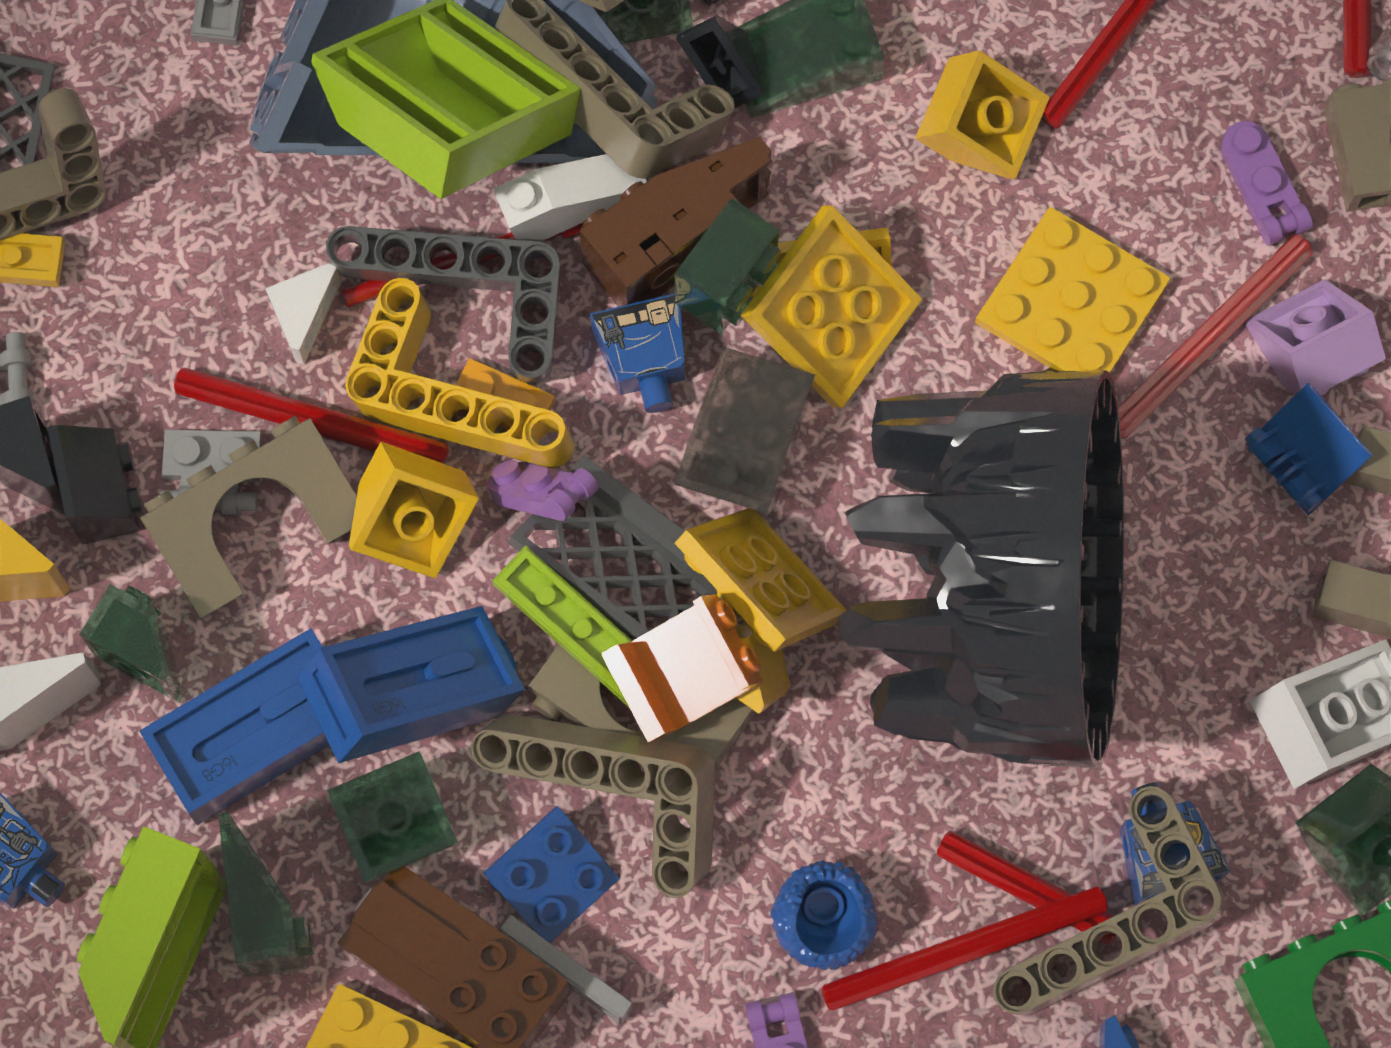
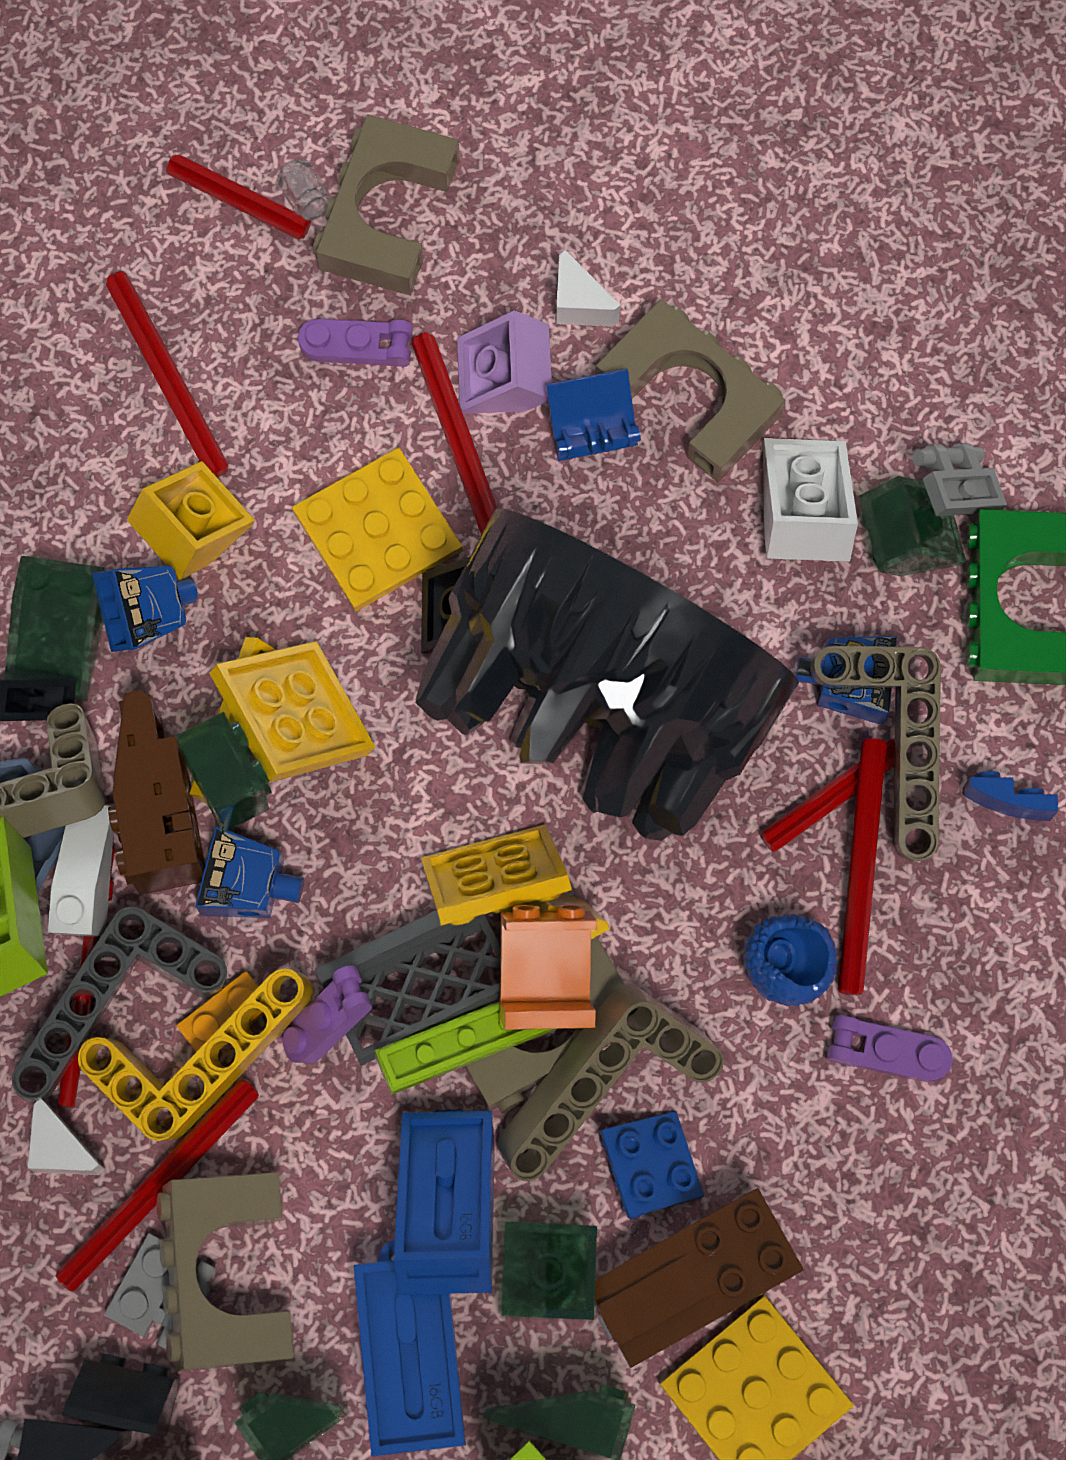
camera: 65 degrees left, 0 degrees up
(410, 510) = (288, 1134): yellow slope -> none
(579, 978) = (736, 1188): light grey tile -> none
(746, 430) = (362, 828): clear smoke slope -> none
(867, 114) = (142, 604): none -> blue torso

